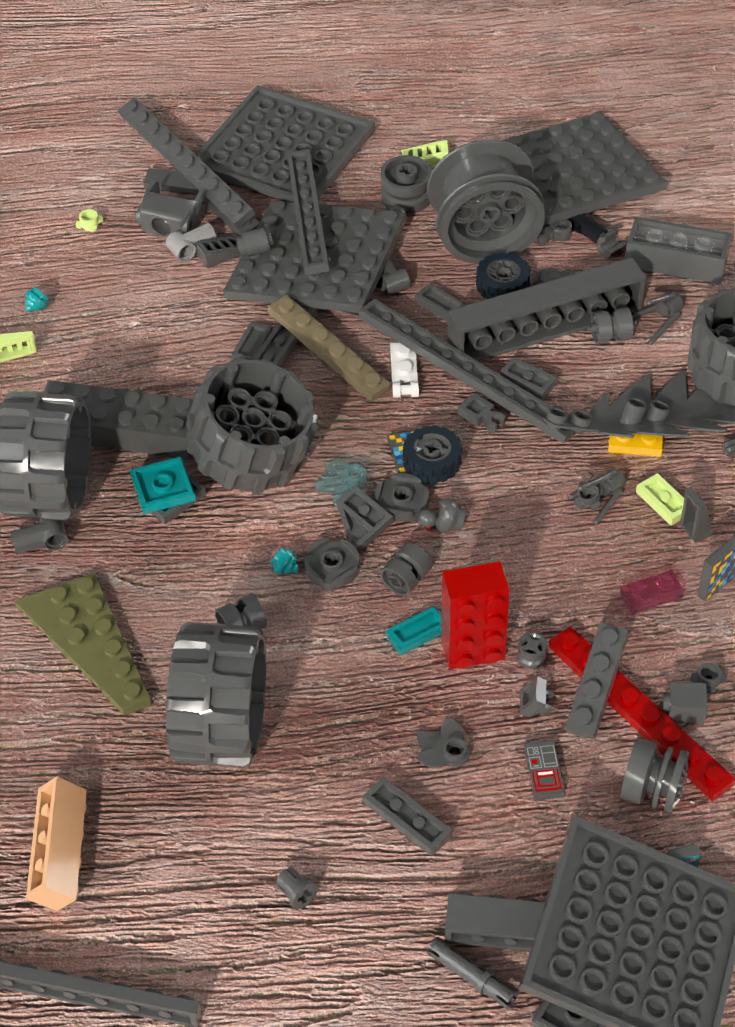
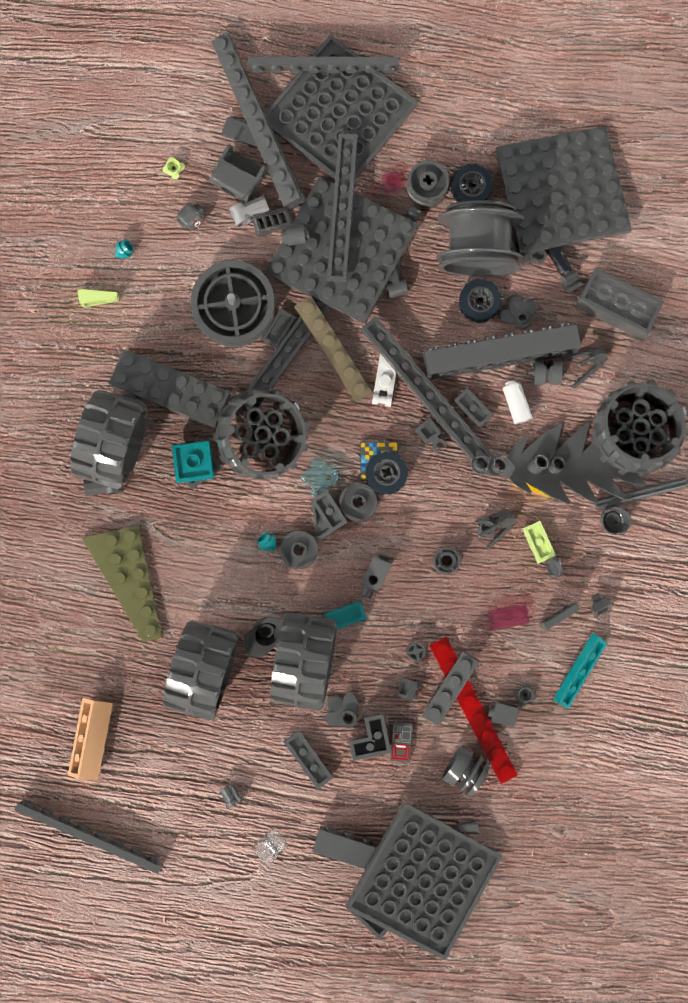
camera: 10 degrees right, 35 degrees up
(118, 255) = (191, 216): none -> dark grey head
(187, 323) = (233, 303): none -> dark grey wheel
(245, 613) = (222, 587): dark grey wheel -> none
(254, 102) = (328, 64): none -> dark grey plate
(304, 662) = (262, 636): none -> dark grey piece
(362, 193) = (392, 177): none -> clear pink plate
(369, 657) = (303, 661): none -> dark grey wheel
(371, 948) = (270, 846): none -> clear wheel
(406, 569) = (347, 570): dark grey wheel -> none
(430, 152) = (466, 142): yellowish green slope -> none
(437, 301) = (427, 315): dark grey tile -> none
(448, 516) = (385, 529): dark grey animal -> none
(449, 554) = (378, 567): none -> dark grey torso
(474, 615) = (380, 638): red brick -> none
(483, 980) = (324, 873): dark grey pin -> none
(501, 767) = (375, 743): none -> dark grey brick
(543, 538) = (439, 567): none -> dark grey wheel
(584, 363) = (517, 402): none -> white brick

